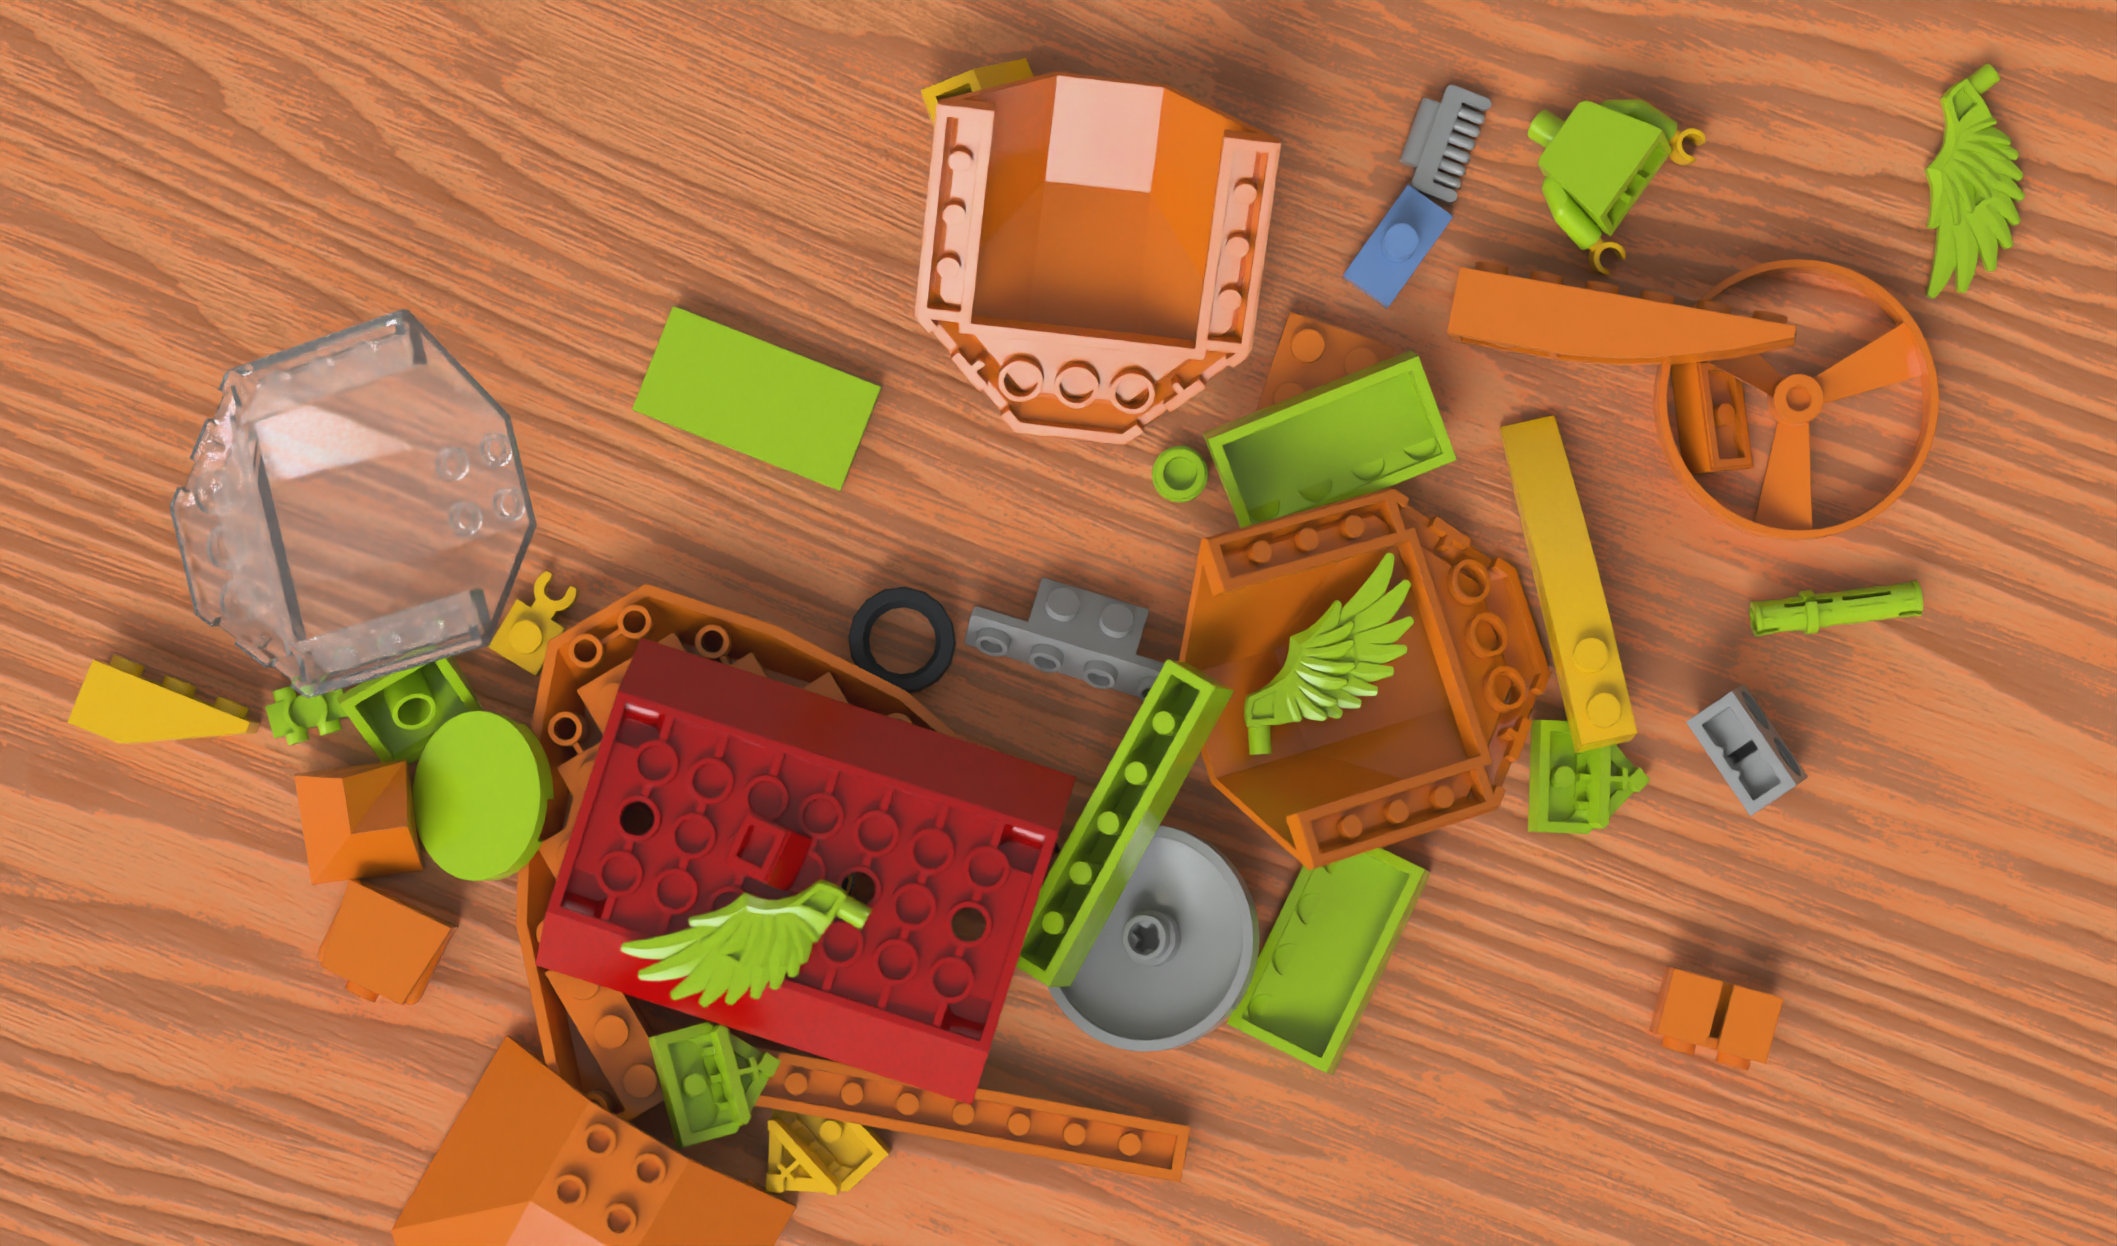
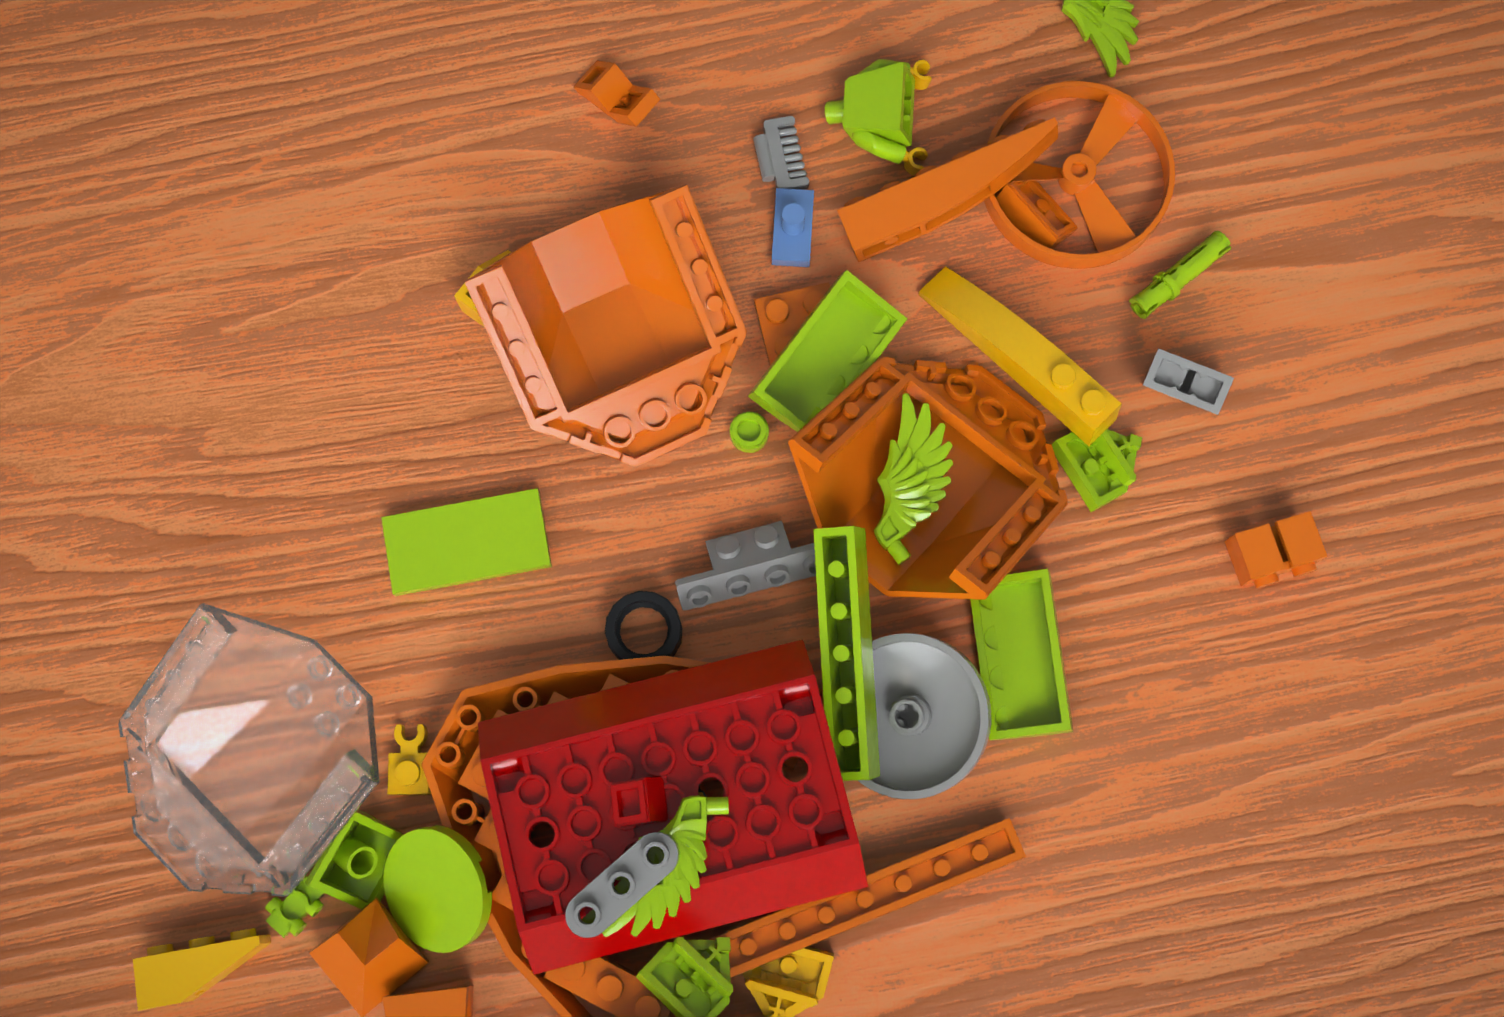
camera: 30 degrees left, 10 degrees down
(719, 928) = (640, 872): none -> light grey plate

